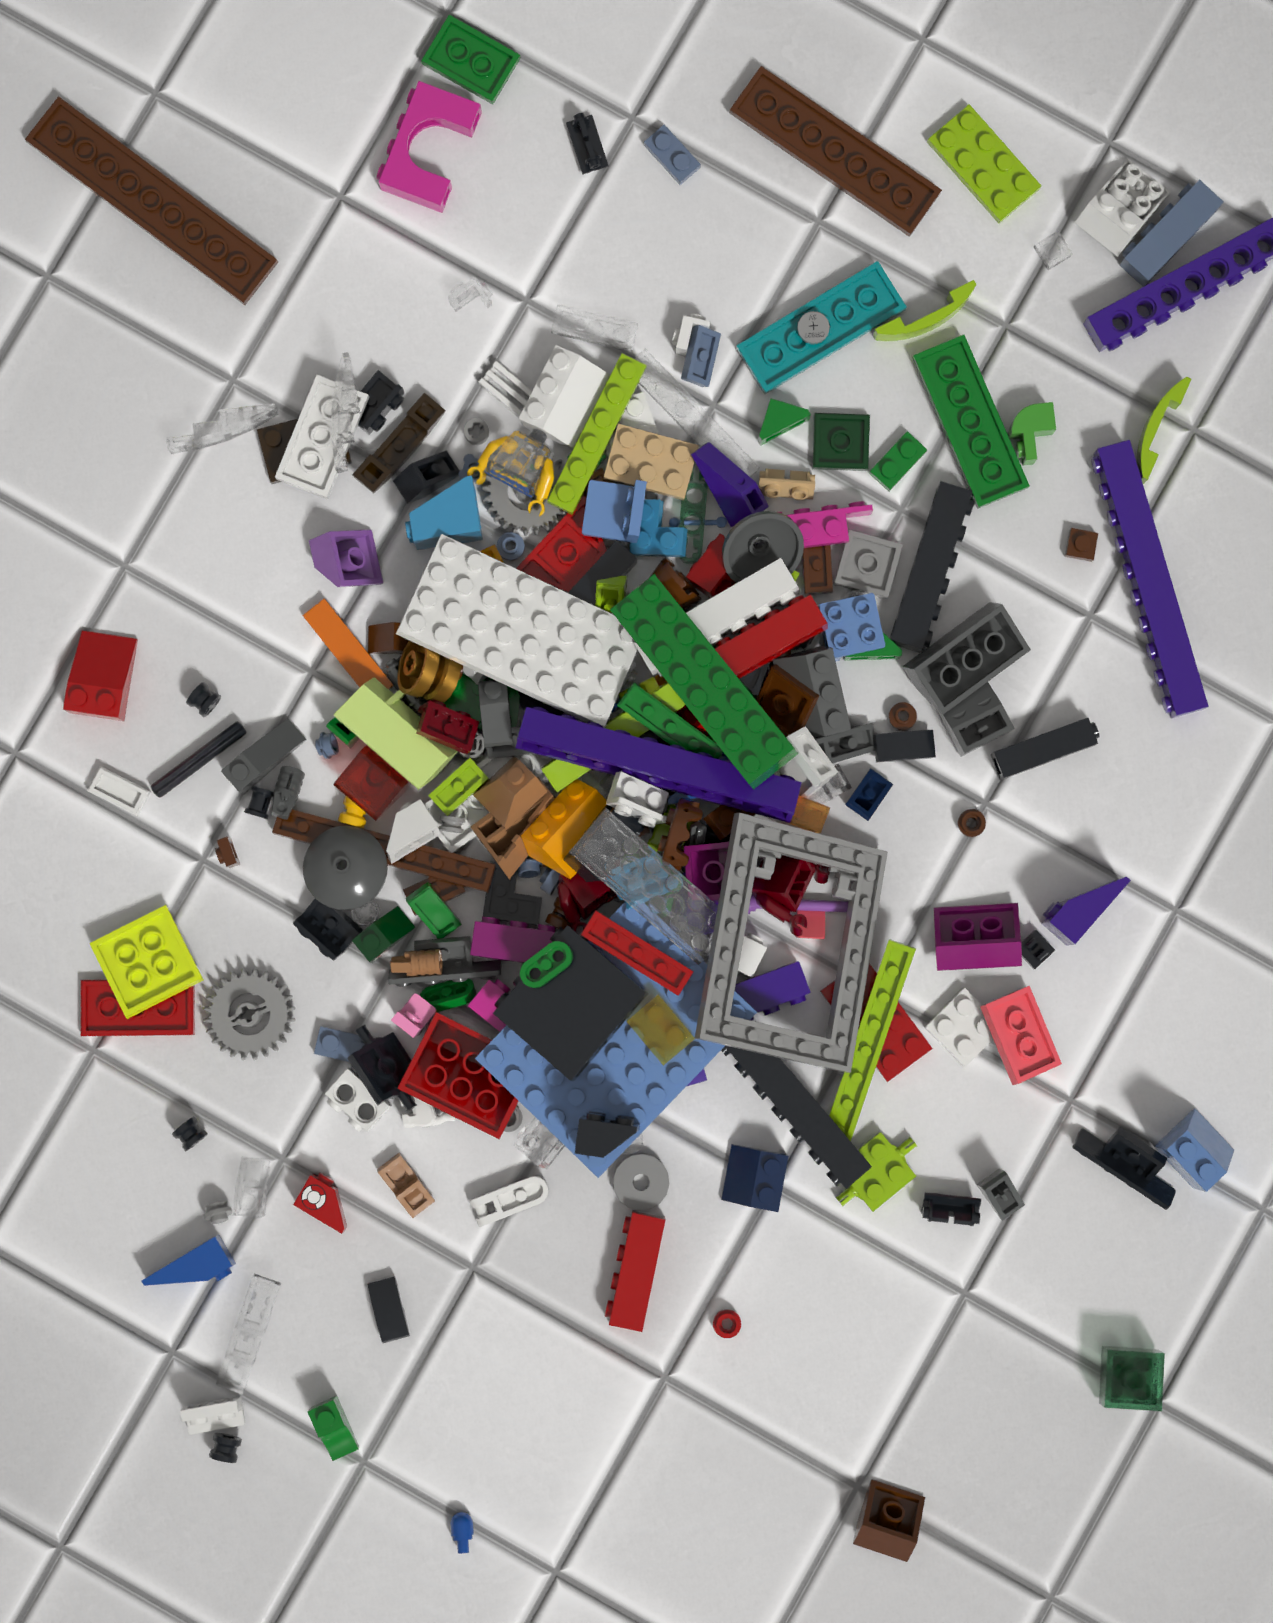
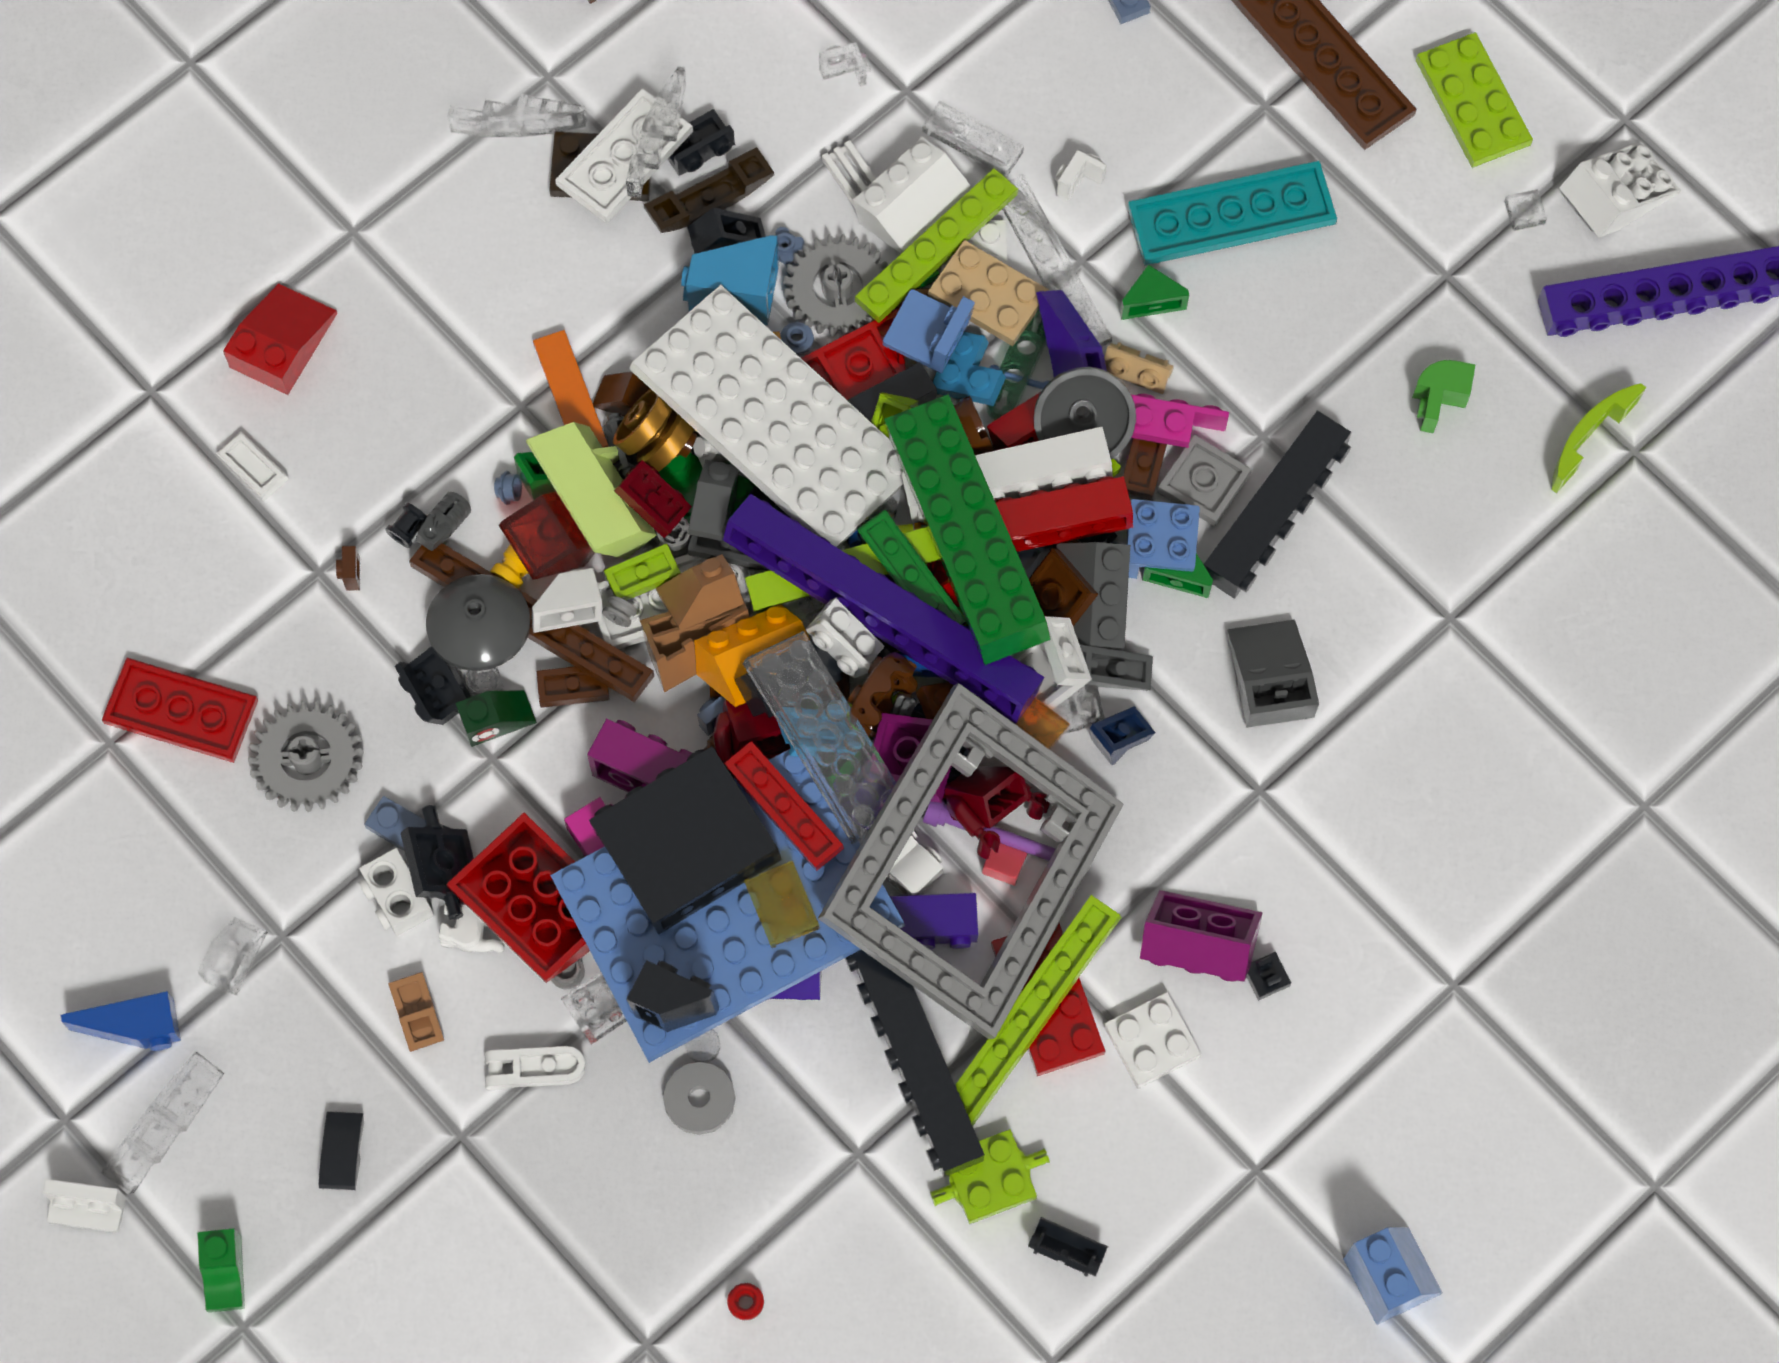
camera: 20 degrees right, 15 degrees down
(146, 961) = (209, 657): neon yellow plate -> none
(189, 1133) = (184, 868): black wheel -> none
(198, 759) = (355, 459): black axle -> none
(203, 699) = (386, 394): black wheel -> none
(217, 1212) = (181, 969): light grey plate -> none
(225, 1448) = (83, 1250): black wheel -> none
(263, 756) = (429, 477): dark grey slope -> none
(322, 1202) = (309, 995): red slope -> none
(347, 558) = (606, 291): medium lavender slope -> none
(414, 1015) = (496, 811): bright pink slope -> none
(418, 963) = (525, 754): medium nougat hinge -> none
(433, 911) = (563, 704): green tile -> none
(449, 994) = (545, 805): green plate -> none
(456, 961) = (553, 763): dark grey bracket -> none
(470, 426) = (807, 213): light grey bush -> none
(506, 905) = (651, 716): black plate -> none
(519, 463) = (837, 246): clear torso -> none
(529, 868) = (692, 693): sand blue plate -> none
(546, 963) = (670, 776): green plate -> none
(636, 1272) = (656, 1199): red brick -> none
(701, 356) = (1084, 201): sand blue plate -> none
(755, 1177) = (840, 1135): dark blue slope -> none
(813, 327) = (1222, 207): light grey piece -> none
(841, 441) = (1215, 341): dark green tile -> none
(896, 722) = (1189, 669): reddish brown plate -> none
(897, 331) = (1316, 241): lime slope -> none
(898, 461) = (1275, 381): green plate -> none
(904, 746) = (1182, 692): black slope -> none
(967, 657) = (1288, 613): dark grey slope -> none
(970, 421) = (1373, 363): green plate -> none
(980, 823) = (1239, 796): reddish brown plate -> none
(1001, 1194) = (1134, 1250): dark grey slope -> none
(1020, 1035) = (1218, 1066): coral plate -> none
(1045, 748) = (1350, 746): black brick -> none
(1076, 915) = (1336, 938): dark purple slope -> none
(1081, 544) = (1463, 535): reddish brown plate -> none
(1128, 1161) = (1307, 1261): black bracket -> none
(1150, 579) = (1532, 598): dark purple brick -> none
(1171, 233) = (1669, 229): sand blue brick -> none

